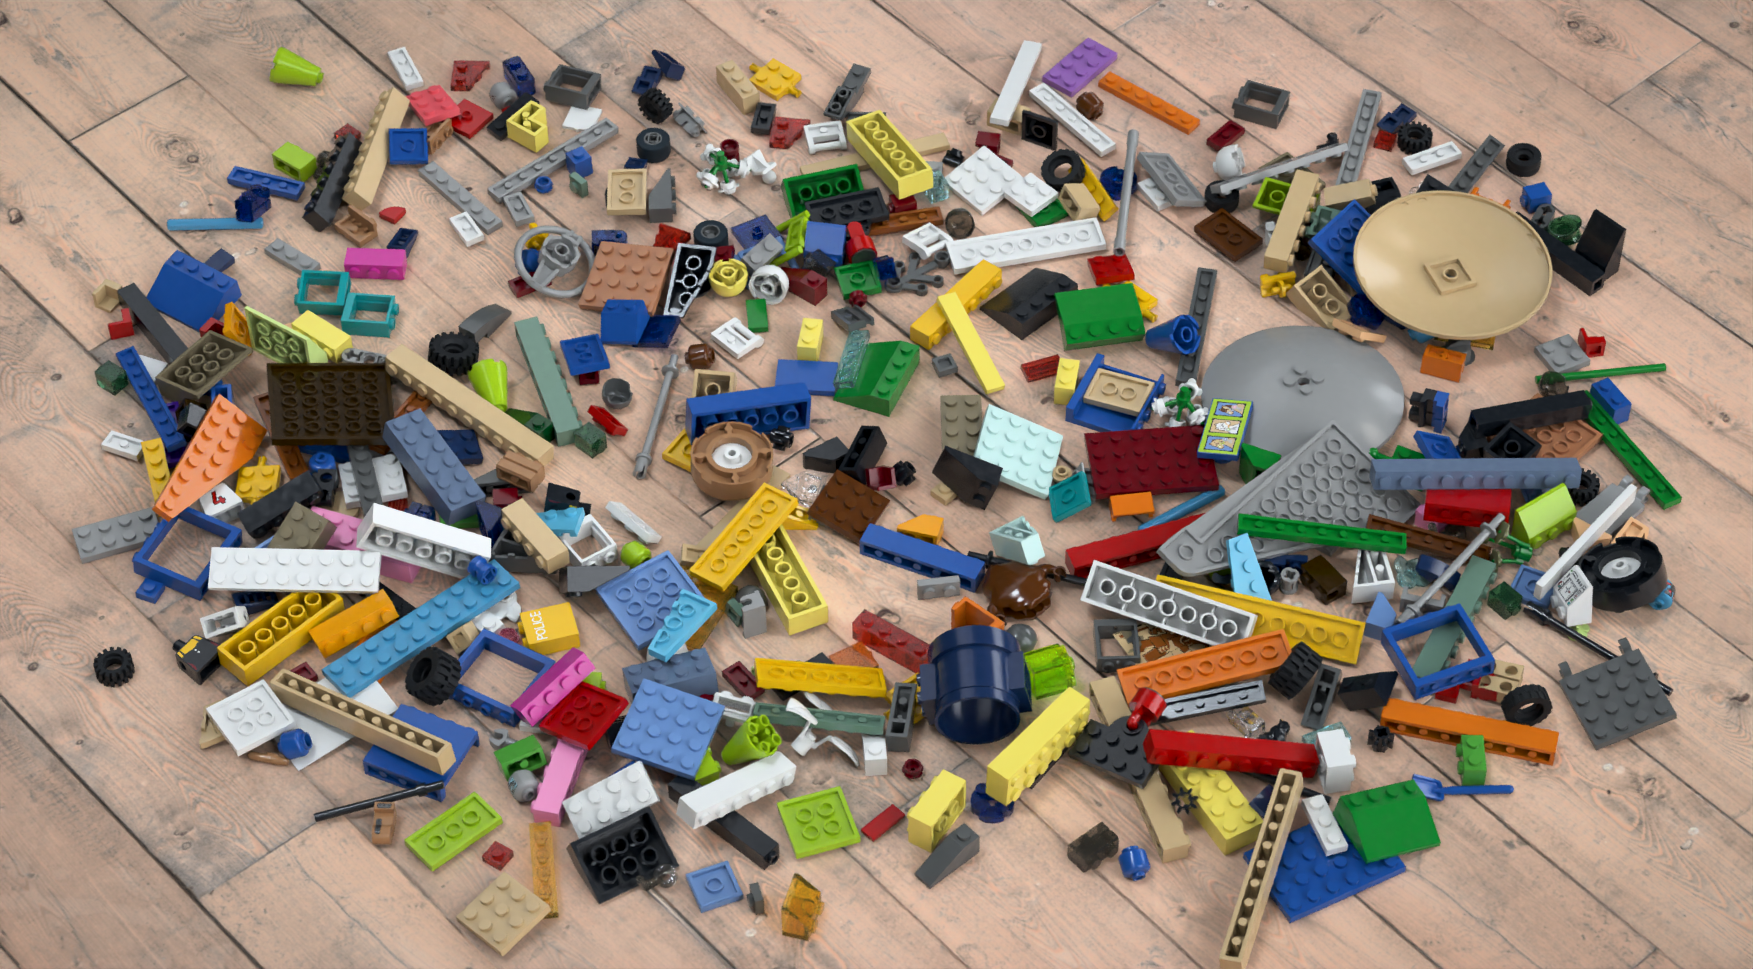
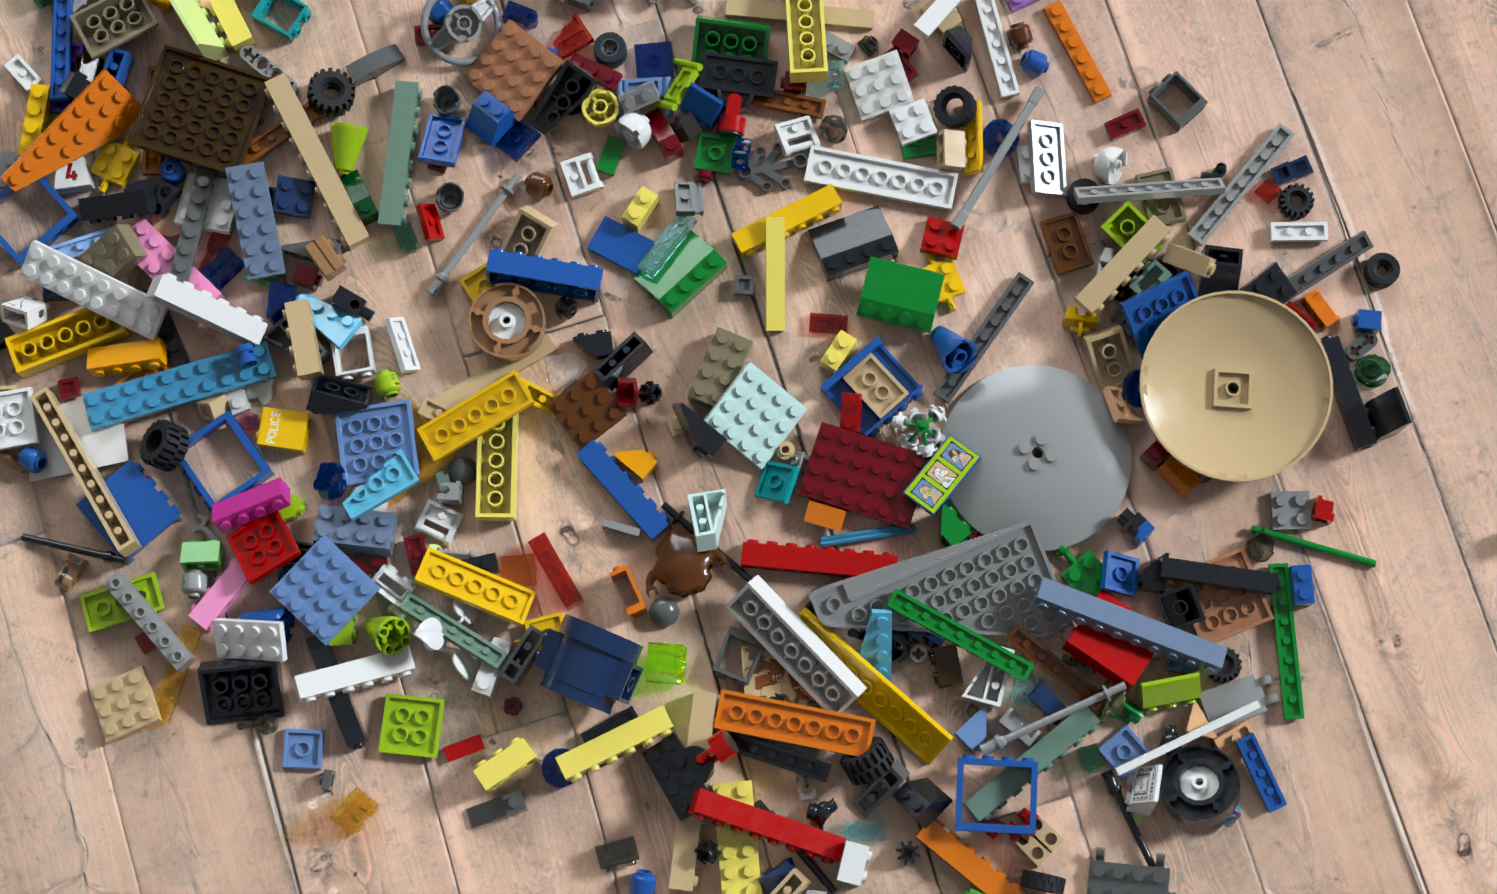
camera: 25 degrees right, 30 degrees up
(495, 825) = (149, 621): none -> light grey brick
(572, 323) = (446, 100): none -> dark grey hair
(612, 645) = (330, 481): none -> clear blue plate
(750, 643) = (441, 516): none -> white plate
(1106, 416) = (851, 411): none -> red plate
(1115, 119) = (1034, 63): none -> blue head
(1411, 355) = (1154, 455): none -> dark red brick
(1673, 552) = (1260, 772): none -> blue plate

